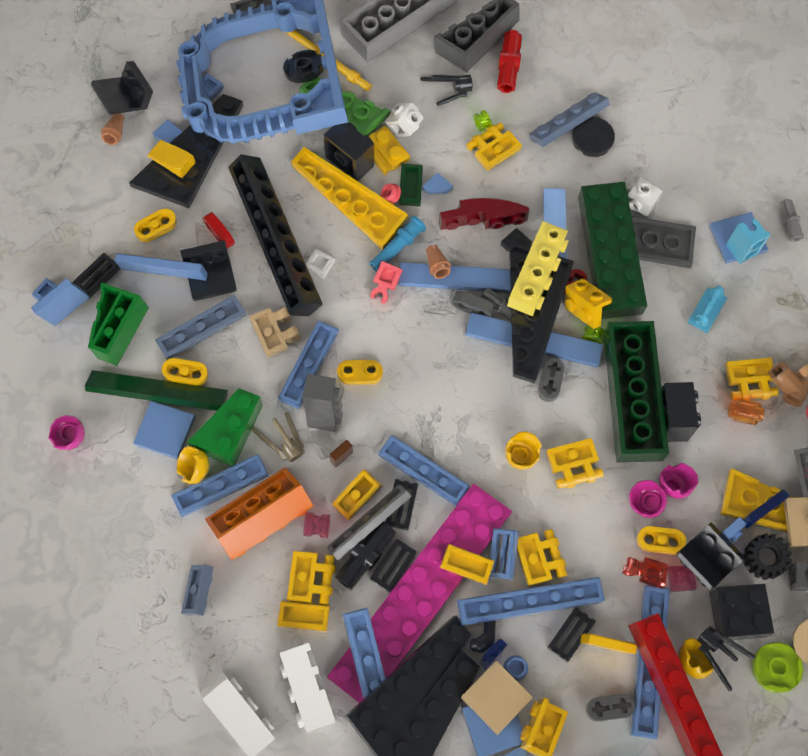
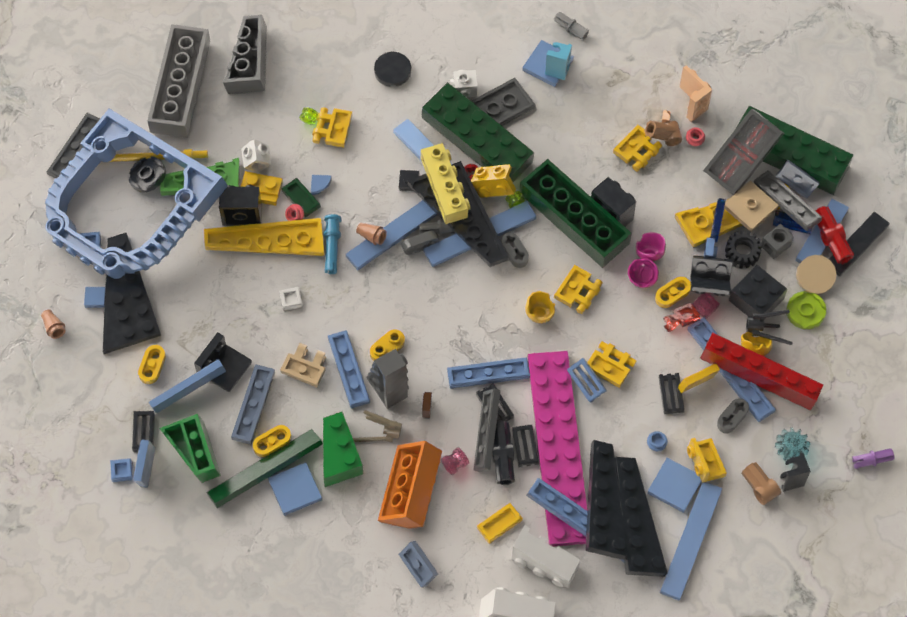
camera: 40 degrees left, 5 degrees down
(66, 432) = (232, 543): dark pink hair -> none
(124, 93) = (36, 290): black bracket -> none
(172, 158) = (119, 309): yellow slope -> none
(192, 465) = (338, 492): yellow hair -> none
(218, 229) = (199, 331): red beam -> none
(219, 485) = (366, 492): medium blue tile -> none
(275, 236) = (244, 302): black brick -> none
(303, 574) = (476, 498): yellow plate -> none
(357, 494) = (460, 422): yellow slope -> none
(387, 278) = (347, 270): coral plate -> none
(460, 83) = (269, 101): black plant -> none
(467, 564) = (571, 403): yellow tile -> none
(485, 640) = (624, 439): black arm -> none
(490, 211) = (372, 173): dark red slope -> none
(491, 655) = (637, 441): clear blue tile -> none
(496, 697) = (663, 465): tan tile -> none
(509, 61) = (288, 60): red piece -> none
(530, 601) = (629, 394): medium blue tile -> none
(569, 119) = (366, 69): sand blue plate -> none
(708, 308) = (570, 124): medium azure hinge -> none
(746, 411) = (652, 171): clear orange brick -> none

